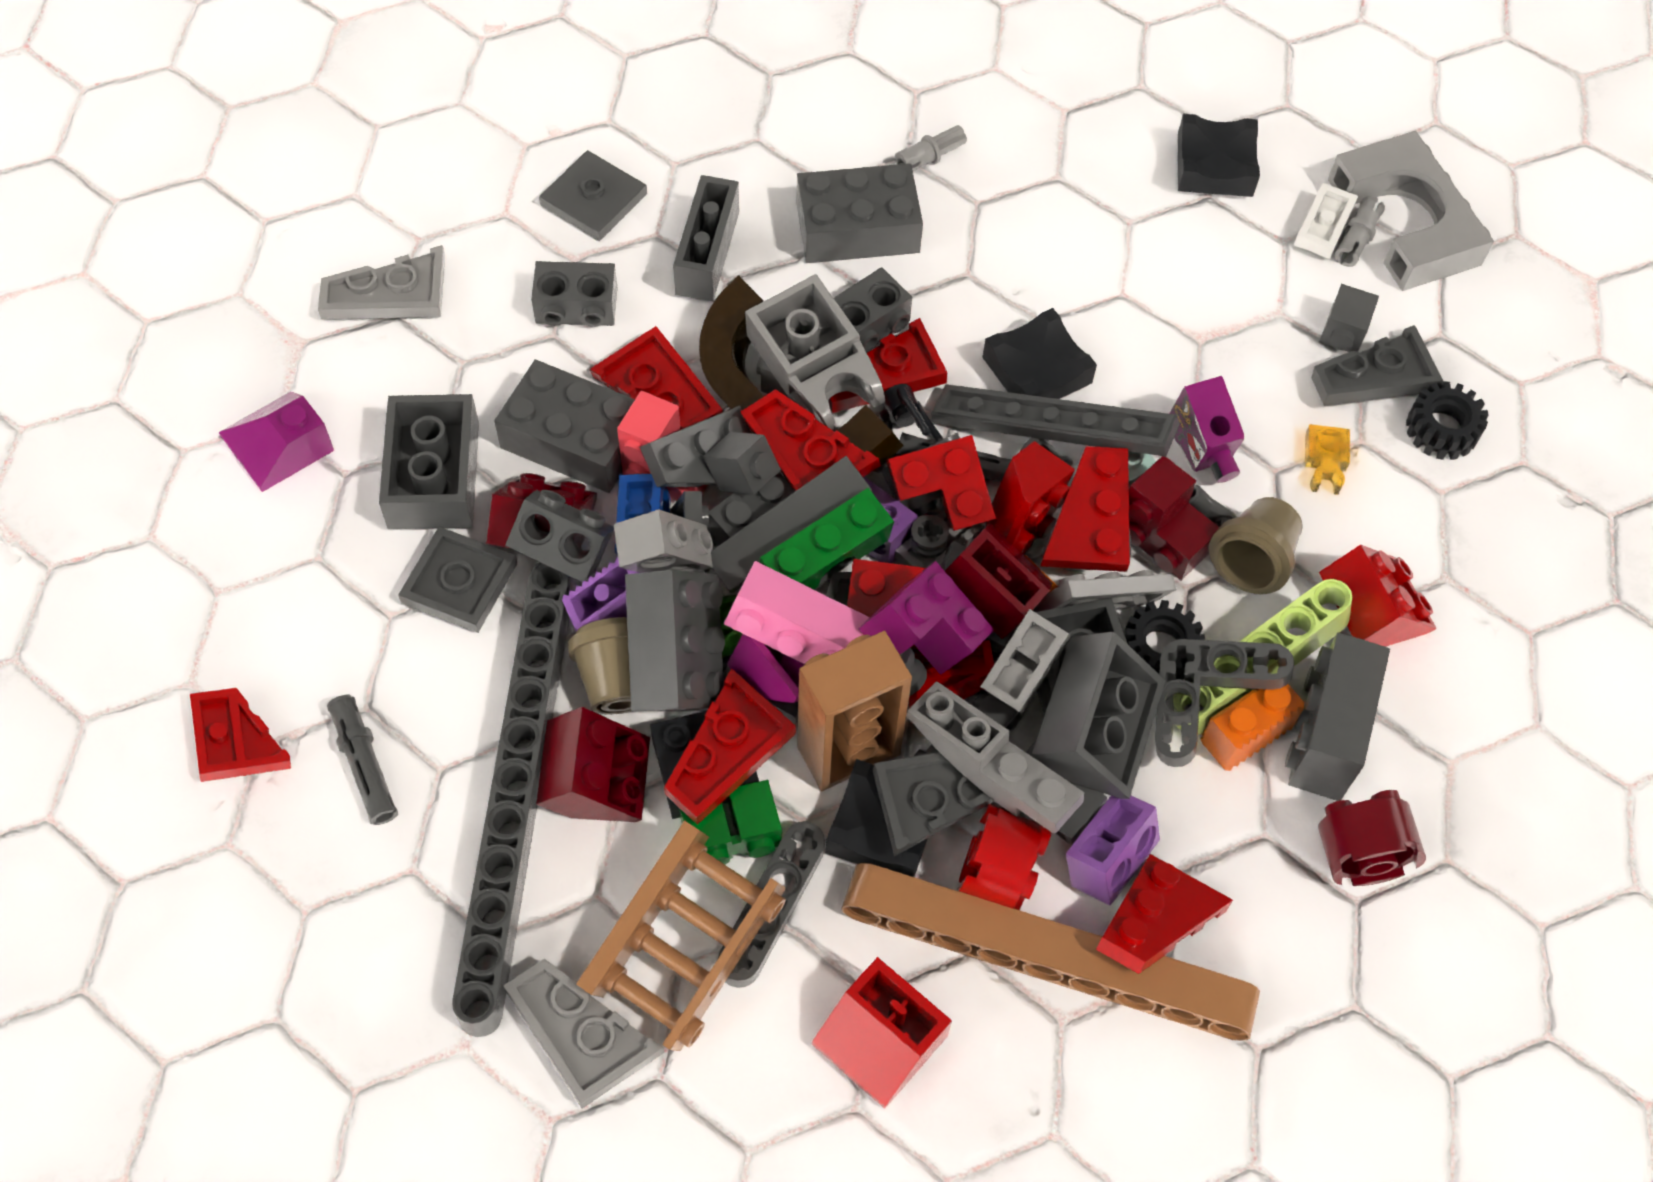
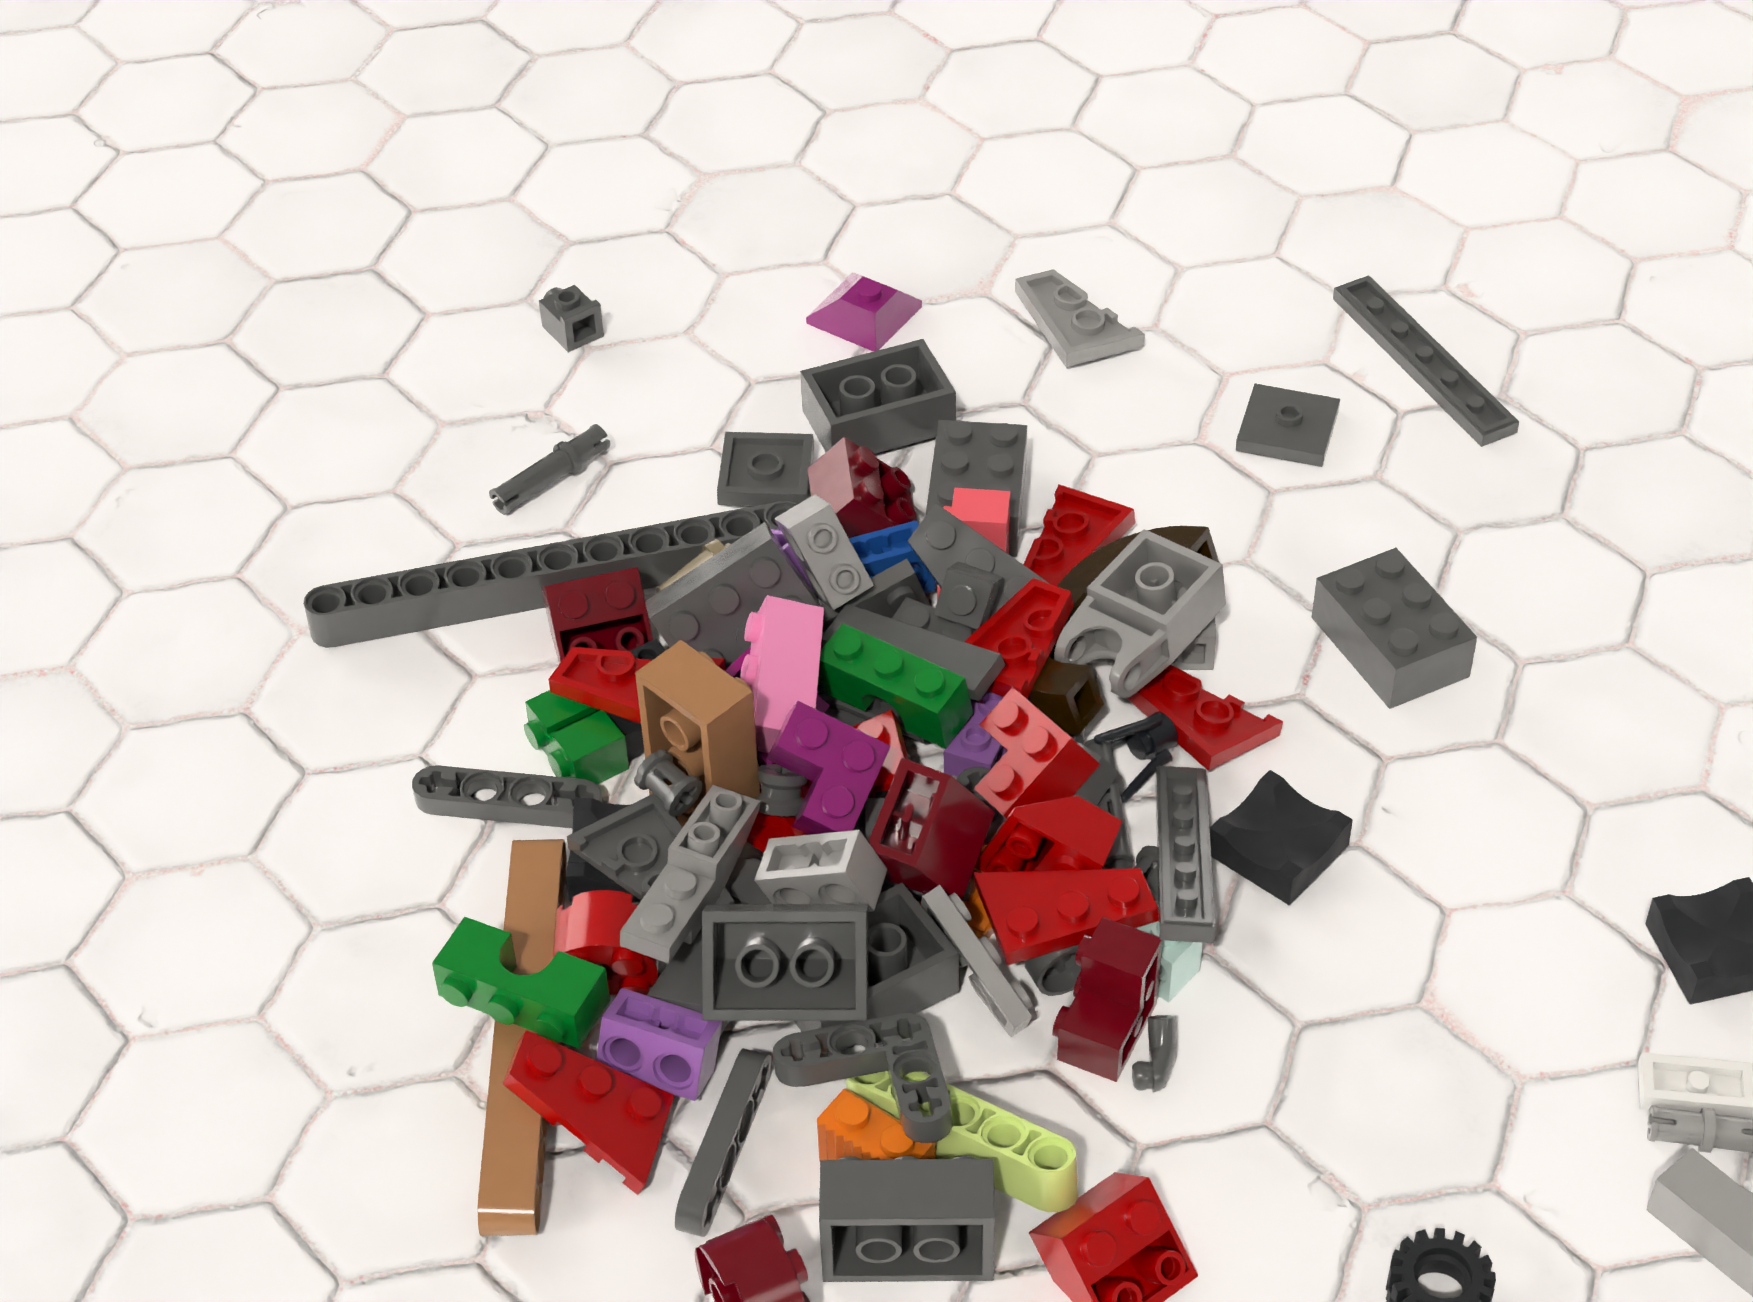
camera: 75 degrees right, 15 degrees down
(148, 683) = (563, 308): none -> dark grey brick
(232, 738) = (539, 382): red wing -> none
(558, 546) = (829, 474): dark grey brick -> none
(561, 83) = (1426, 361): none -> dark grey tile
(574, 293) = (1143, 443): dark grey brick -> none
(578, 1033) = (327, 693): light grey wing -> none
(635, 933) = (427, 686): medium nougat fence -> none
(706, 238) = (1273, 510): dark grey brick -> none
(876, 307) = (1259, 671): dark grey brick -> none
(882, 1032) = (393, 908): slope -> none
(900, 746) = (671, 796): none -> dark grey bush
(932, 148) = (1540, 671): light grey axle -> none
(1015, 962) = (555, 1002): none -> green arch
(1162, 620) = (969, 1025): black tyre -> none
(1208, 428) = (1264, 1011): magenta torso -> none
(1213, 830) = (722, 1143): none -> dark grey beam
(1258, 546) = (1121, 1098): dark tan piece -> none
(1329, 453) = (1320, 1164): clear yellow plate -> none
(1349, 318) = (1538, 1139): dark grey brick -> none
(1381, 372) = (1476, 1194): dark grey wing -> none

